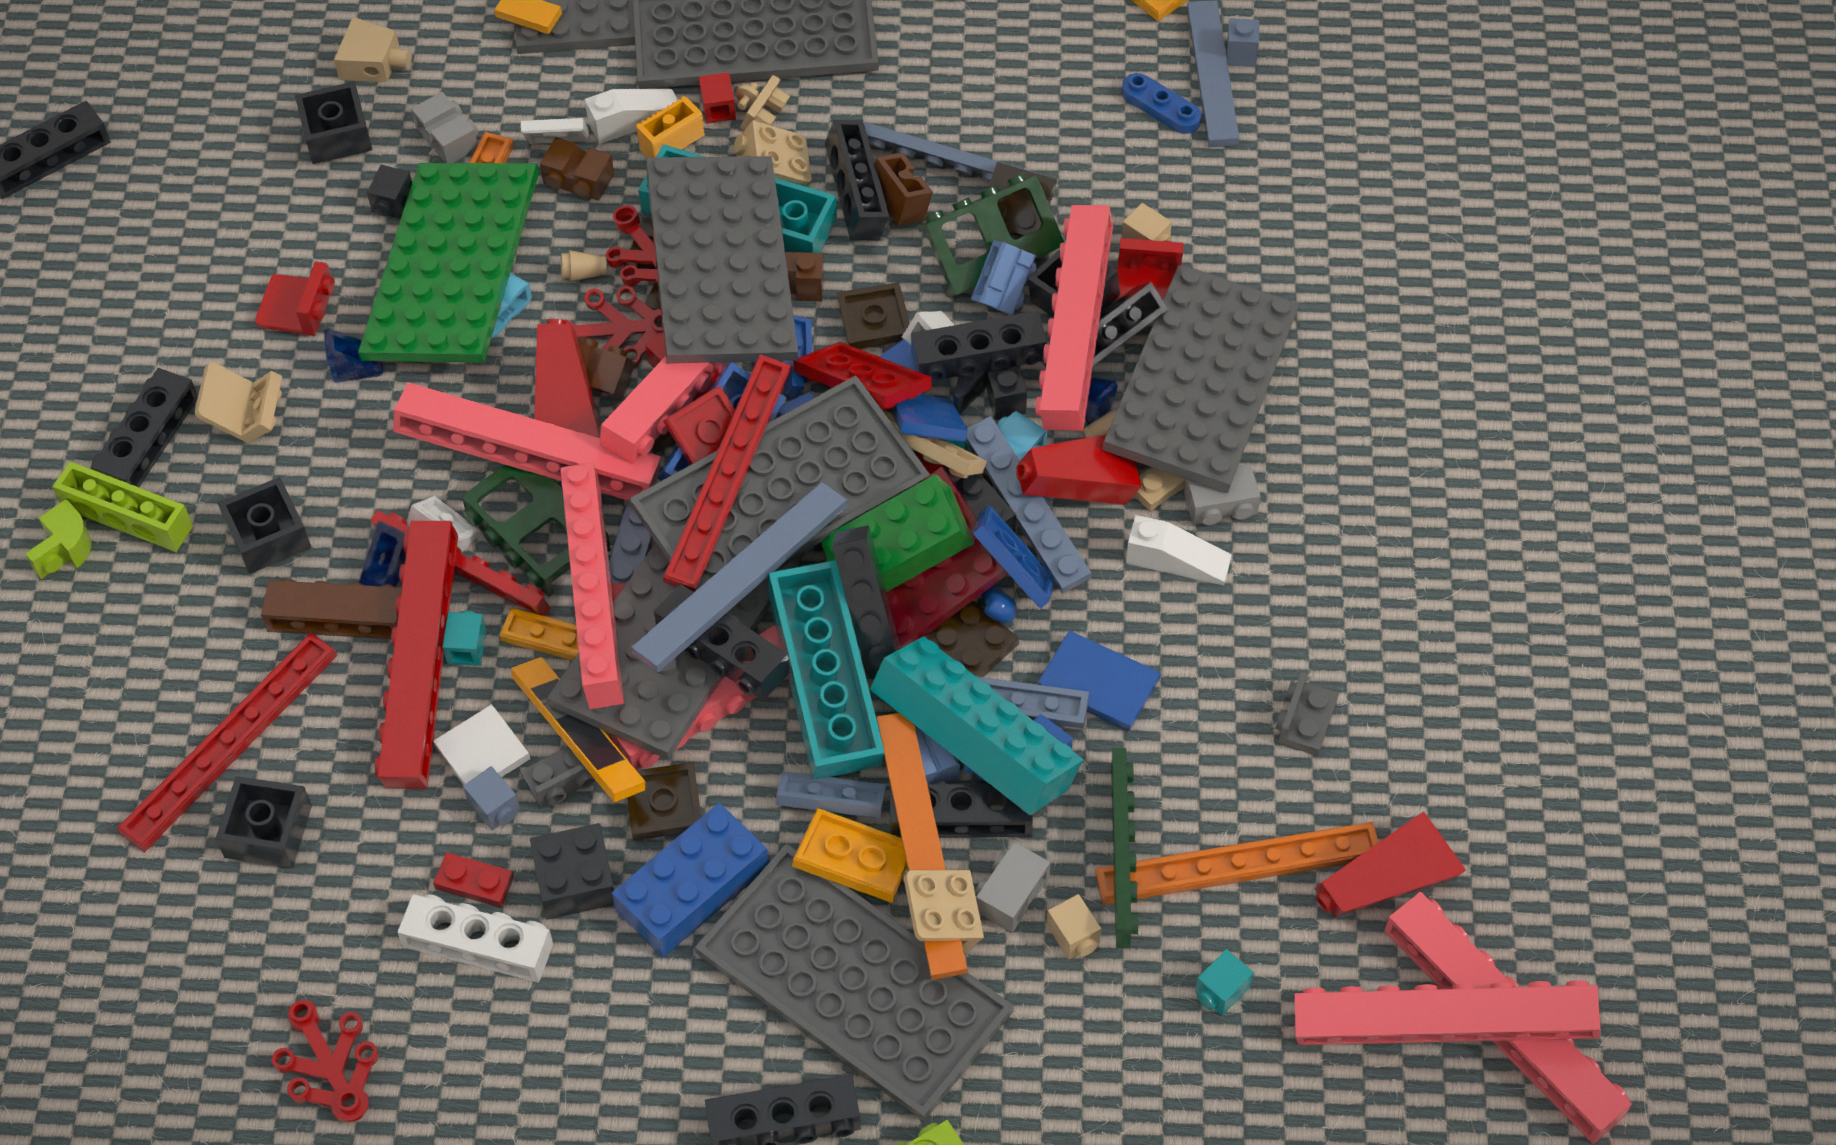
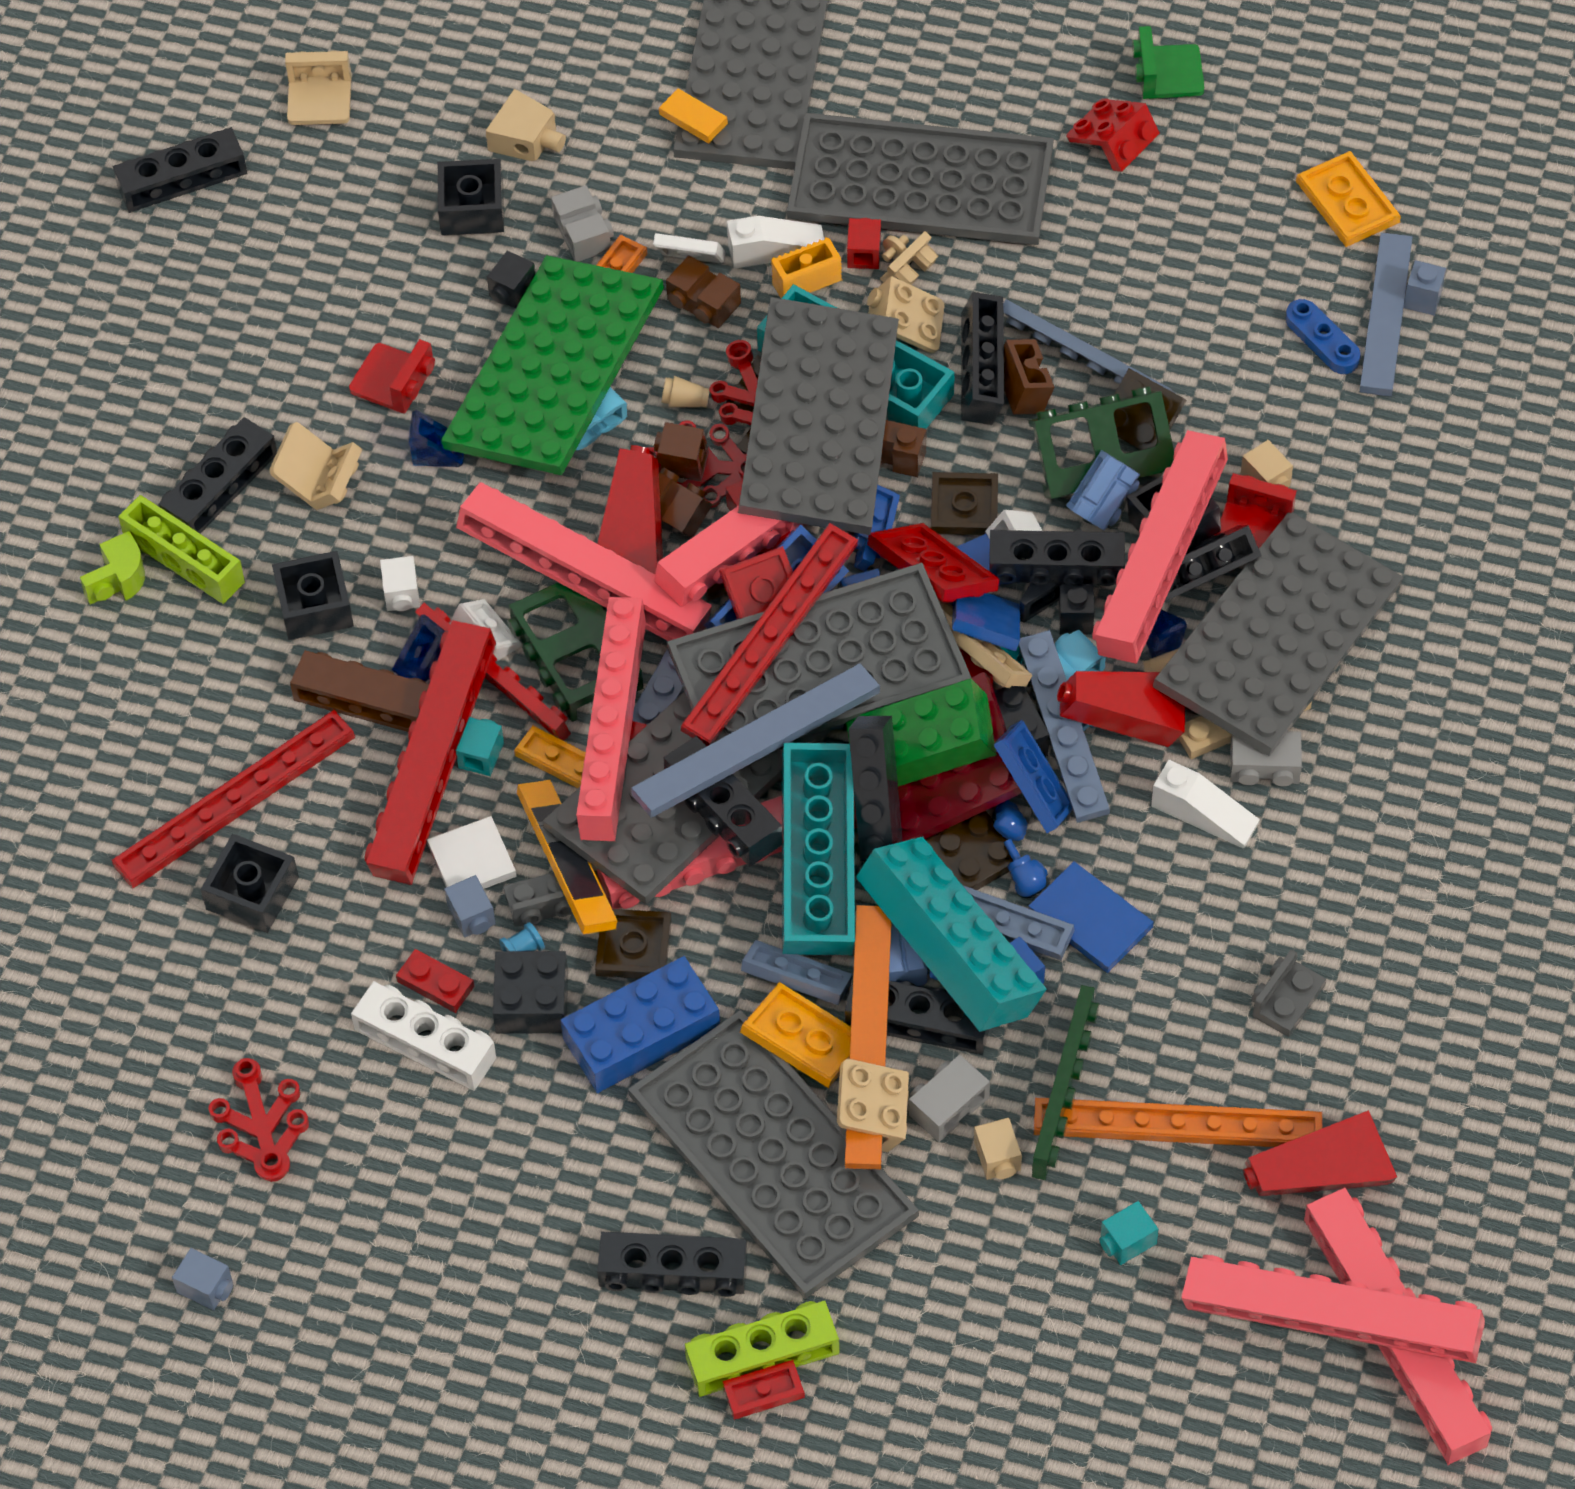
camera: 15 degrees right, 0 degrees up
(163, 50) = (318, 87): none -> tan bracket
(348, 497) = (400, 583): none -> white brick
(554, 821) = (525, 940): none -> dark azure bush
(595, 316) = (682, 450): none -> reddish brown brick
(1027, 651) = (1026, 873): none -> blue piece

